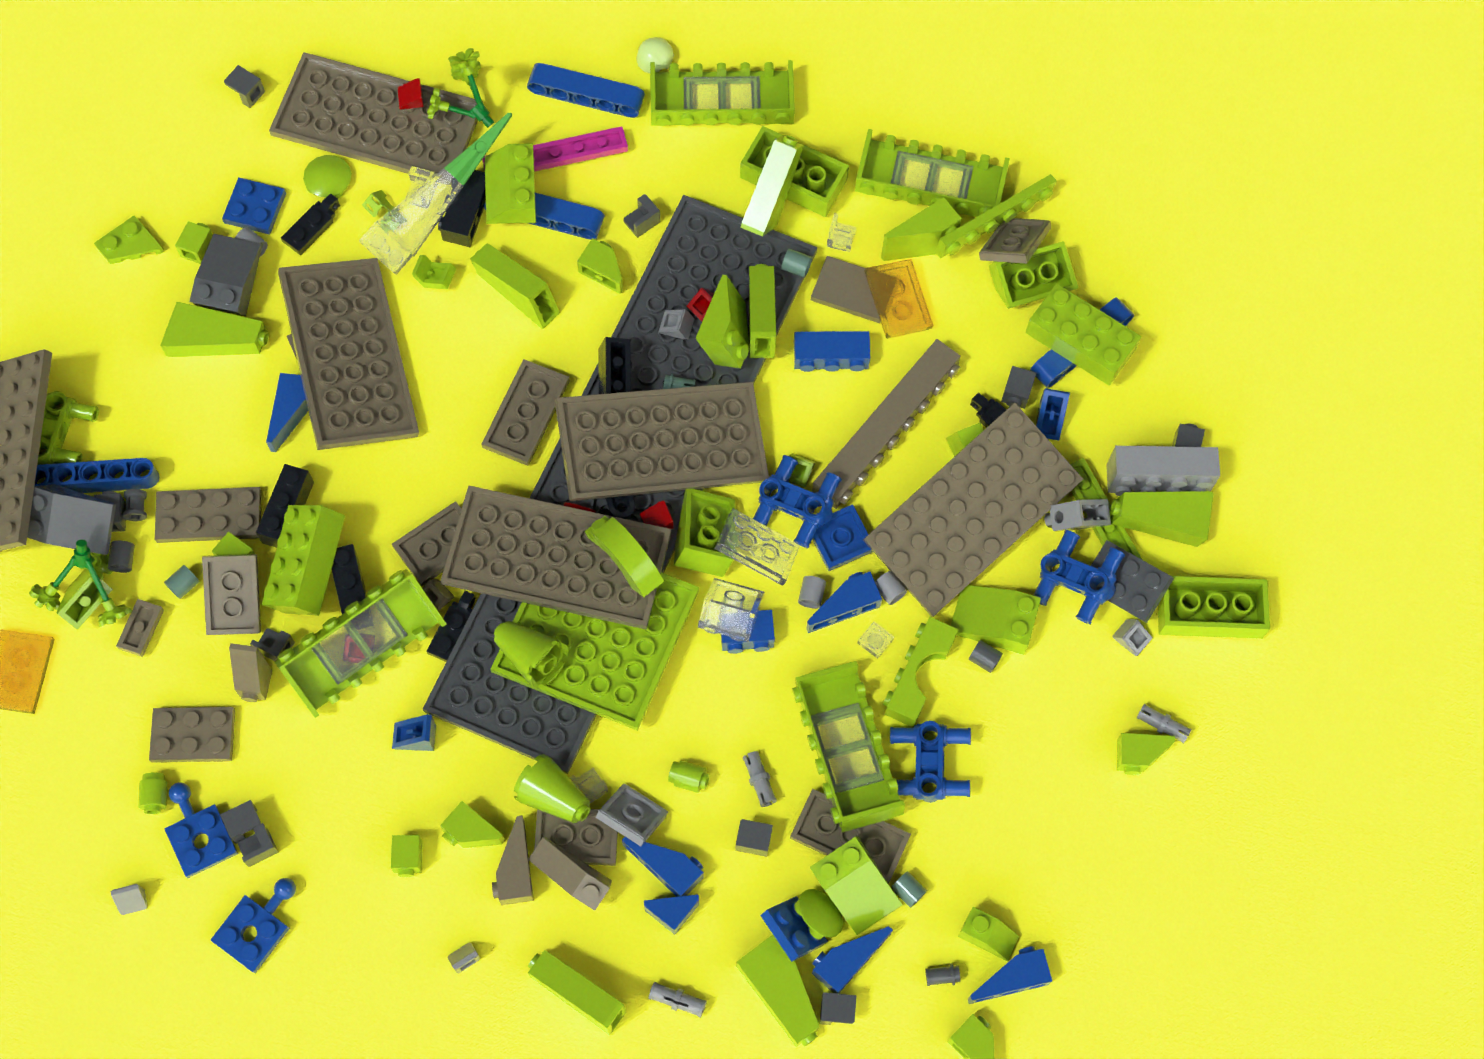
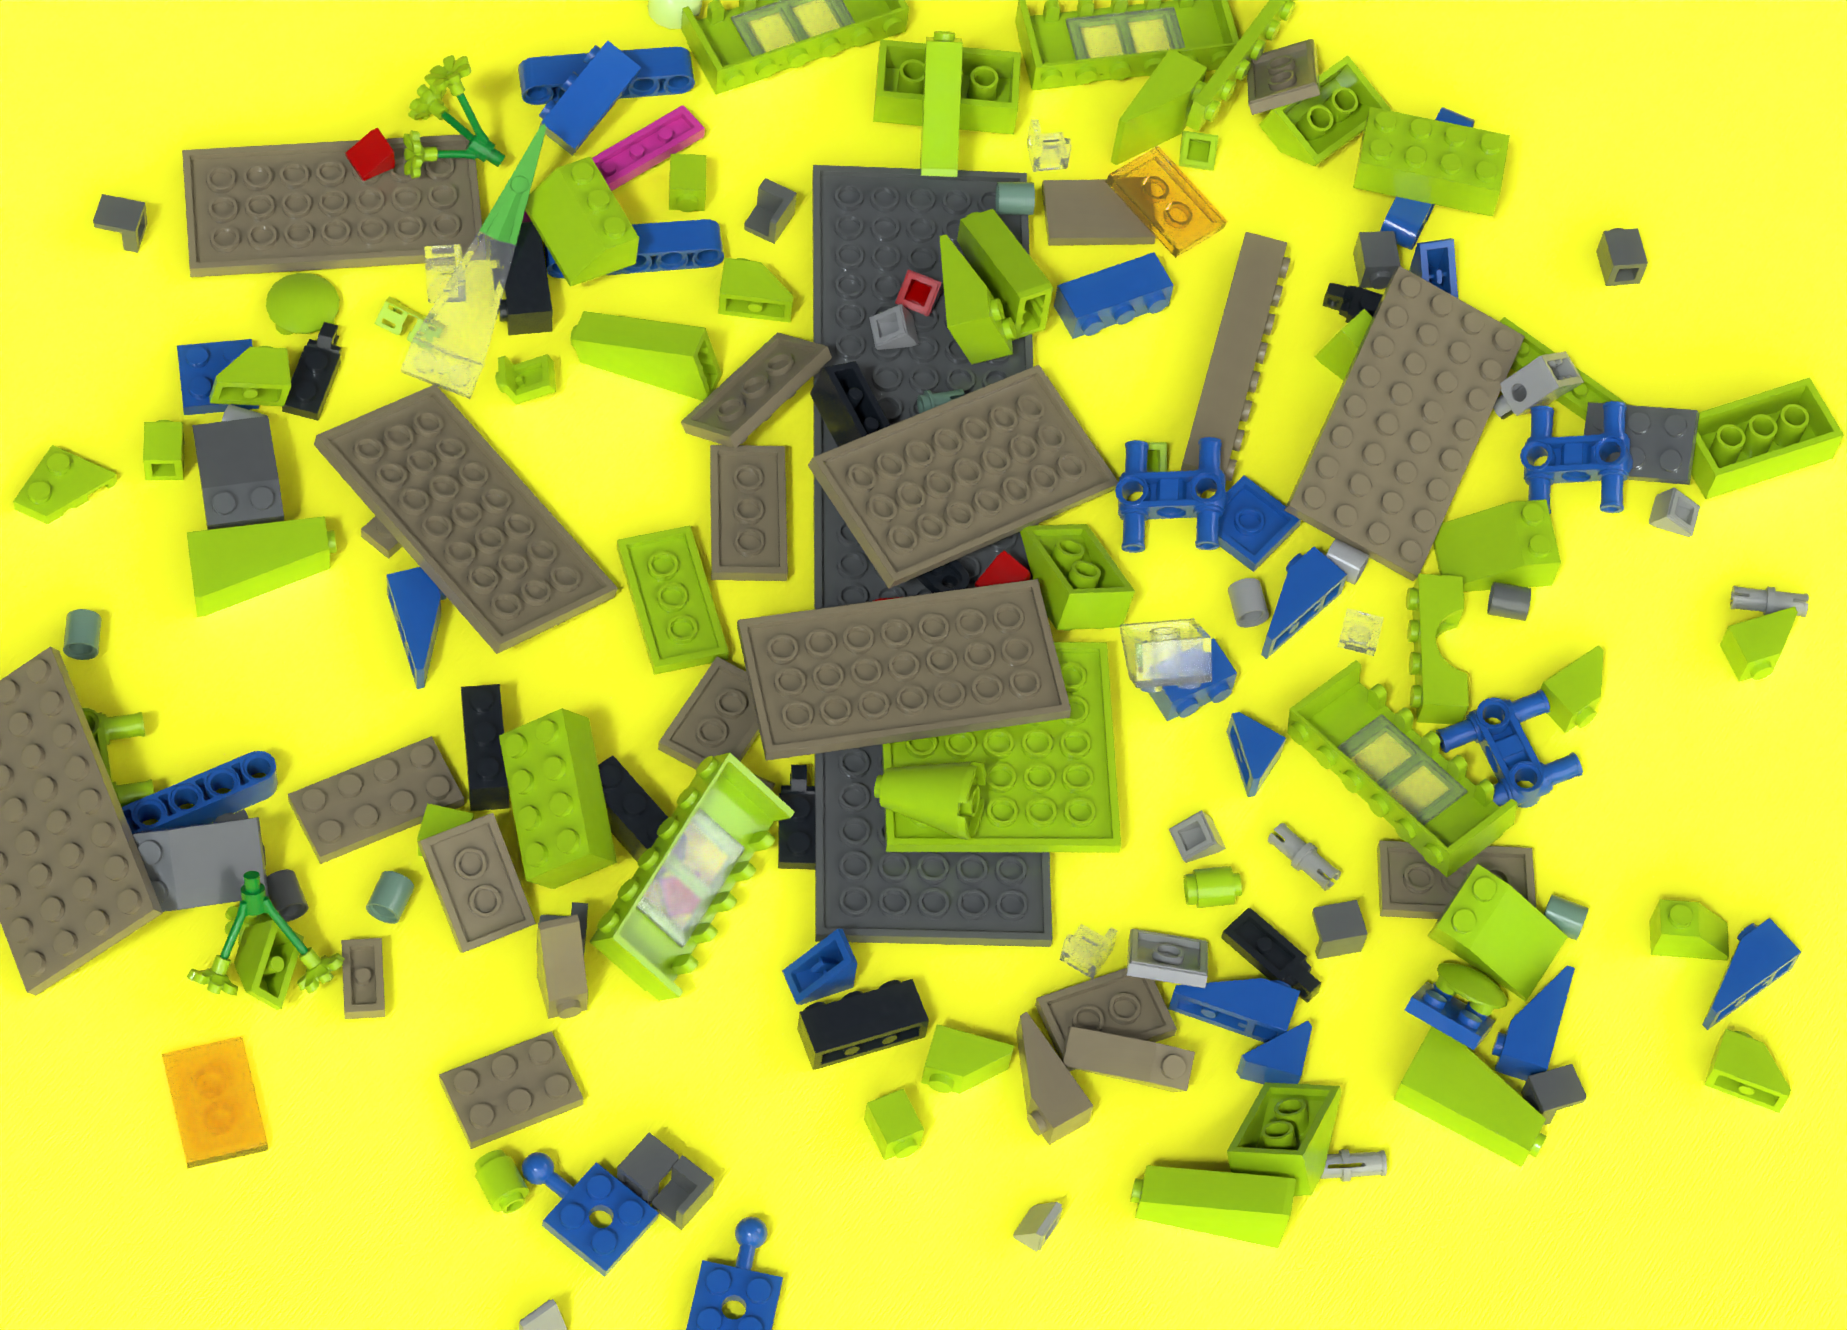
camera: 30 degrees left, 10 degrees down
(89, 343) = (82, 634): none -> sand green beam
(135, 505) = (272, 827): dark grey bush -> none
(265, 215) = (254, 378): none -> lime slope
(421, 778) = (862, 1023): none -> black brick
(449, 452) = (672, 599): none -> lime plate
(551, 791) = (1055, 965): lime cone -> none
(561, 101) = (588, 96): none -> blue brick
(569, 333) = (756, 390): none -> dark tan plate
(599, 179) = (687, 182): none -> lime brick
(626, 554) = (1007, 617): lime arch -> none
(644, 967) = (1287, 1133): none -> lime slope
(699, 738) = (1197, 837): none -> light grey slope
(703, 836) = (1271, 953): none -> black hinge
(757, 547) = (1153, 567): clear plate -> none
(764, 696) = (1254, 750): none -> blue slope
(940, 270) = (1198, 150): none -> lime slope
(943, 975) = (1660, 1004): dark grey pin -> none
(996, 736) = (1575, 691): none -> lime slope
(1162, 469) = (1612, 295): light grey brick -> none
(1169, 515) = (1643, 348): lime slope -> none

